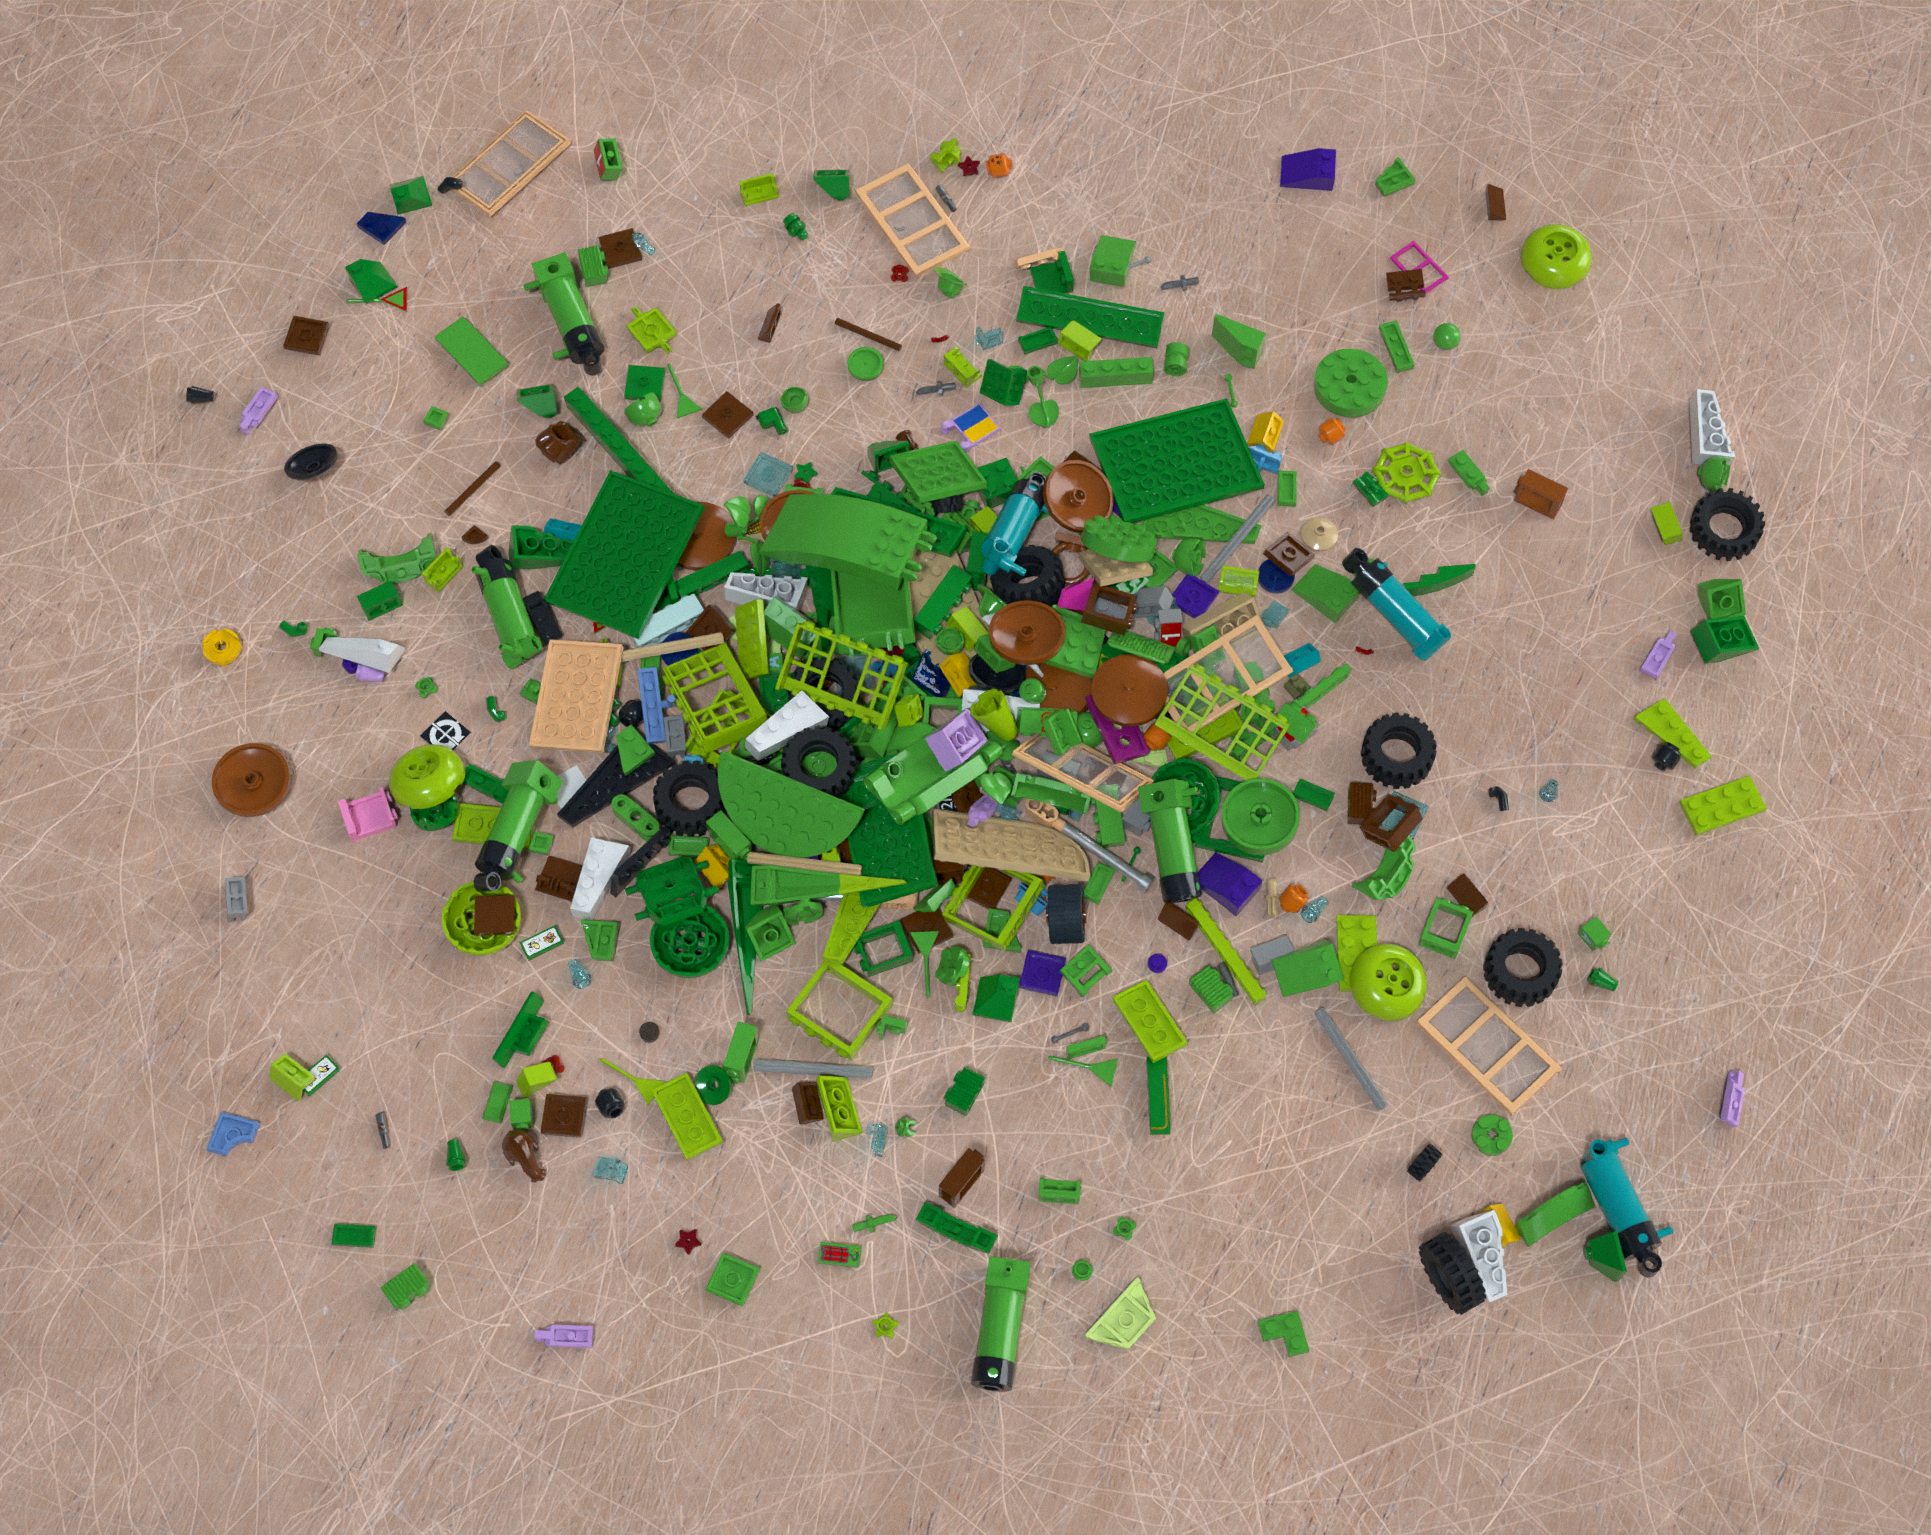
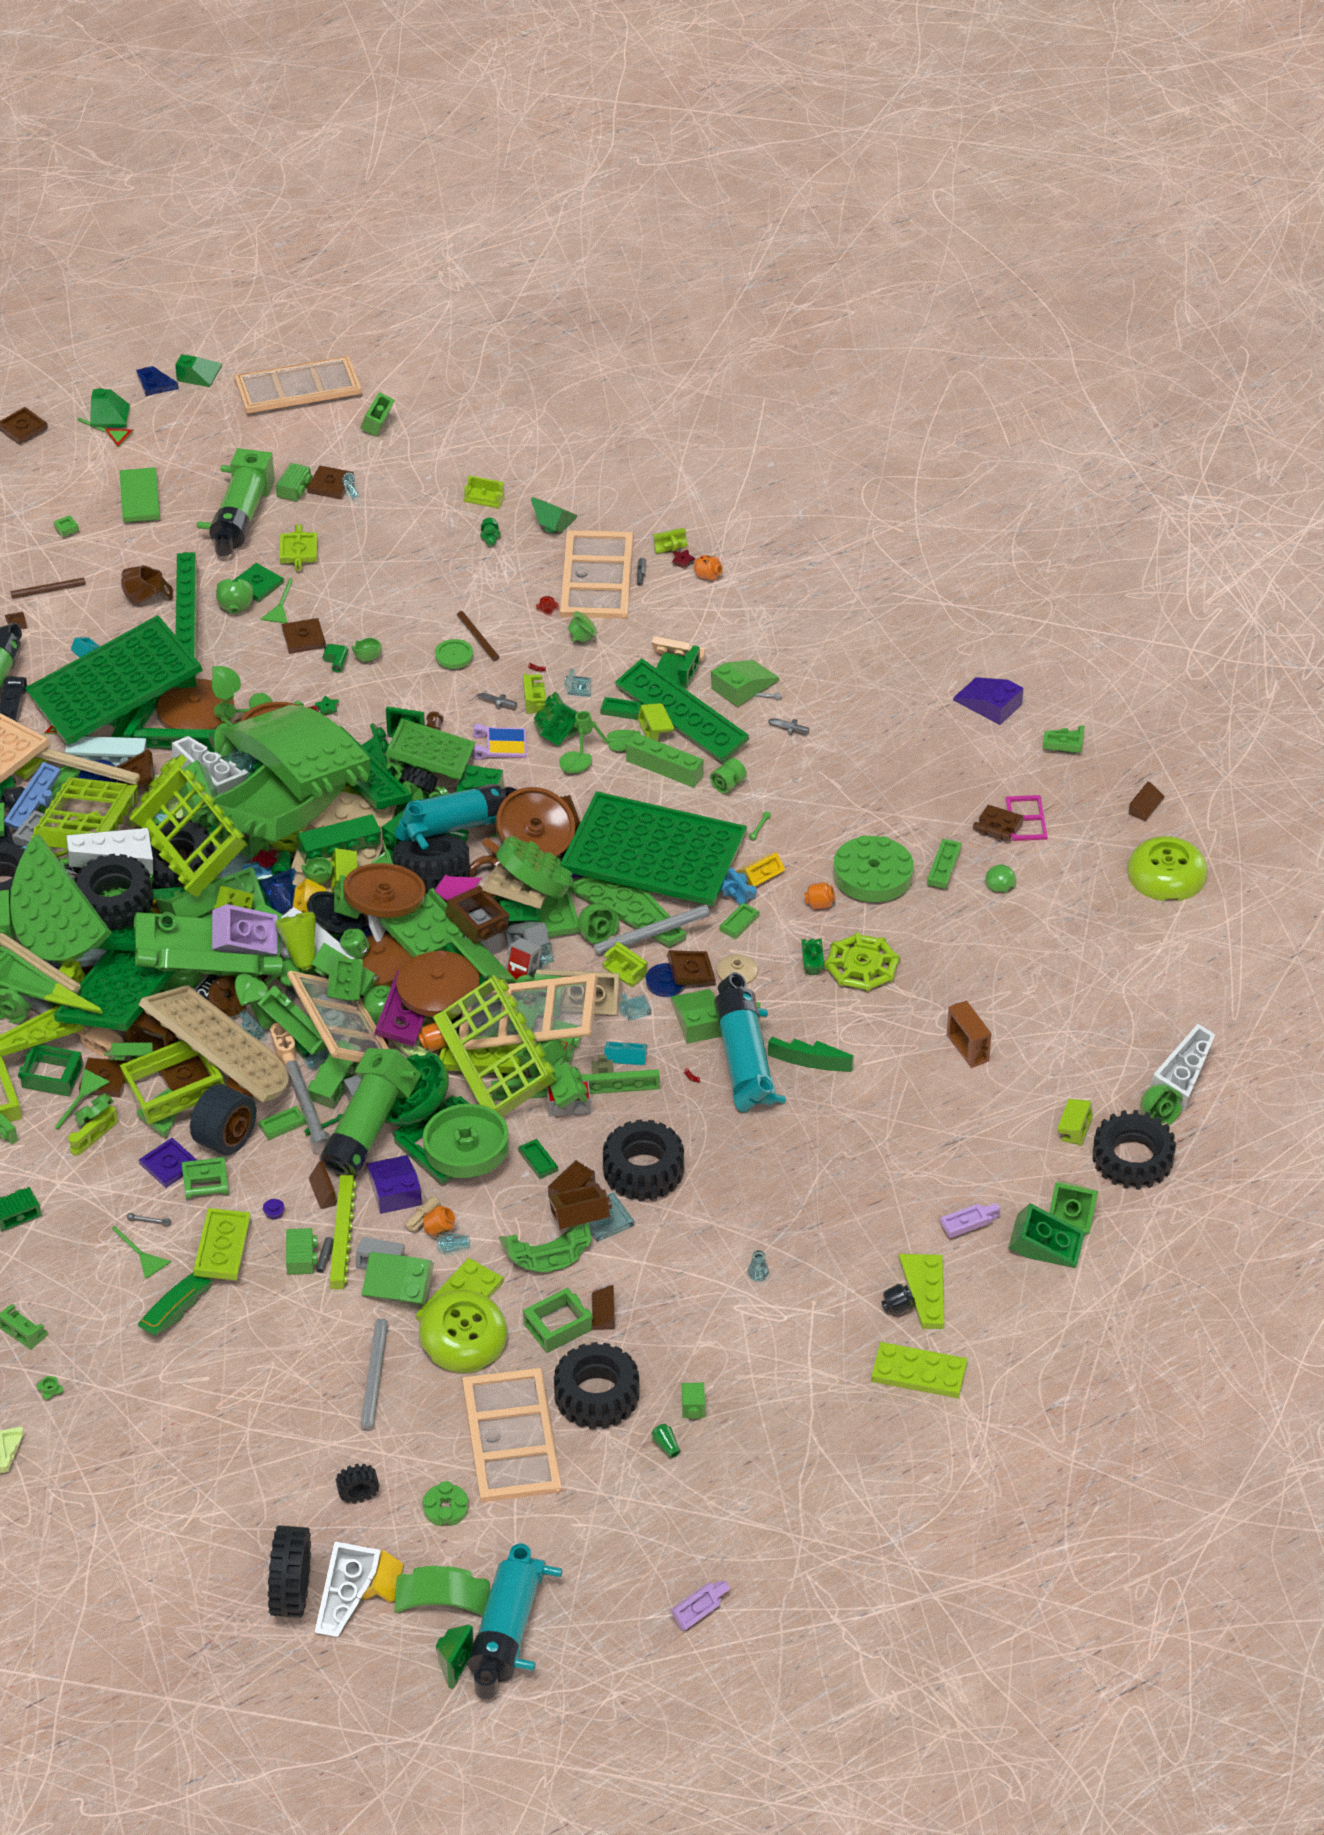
camera: 35 degrees right, 20 degrees down
(450, 183) = (234, 374): black arm -> none
(536, 549) = (50, 646): green wedge -> none
(539, 400) = (158, 552): green slope -> none
(768, 474) = (296, 689): clear light blue plate -> none
(770, 323) = (402, 589): reddish brown slope -> none
(982, 810) = (227, 1008): lavender hinge -> none
(996, 997) = (113, 1158): green slope -> none
(1086, 1047) = (149, 1233): bright green tile -> none
(1194, 596) = (576, 956): dark purple tile -> none
(1239, 340) = (799, 788): bright green slope -> none
(1287, 1327) = (115, 1547): bright green plate -> none
(1469, 472) = (922, 990): bright green hinge -> none
(1501, 796) = (708, 1252): black arm -> none

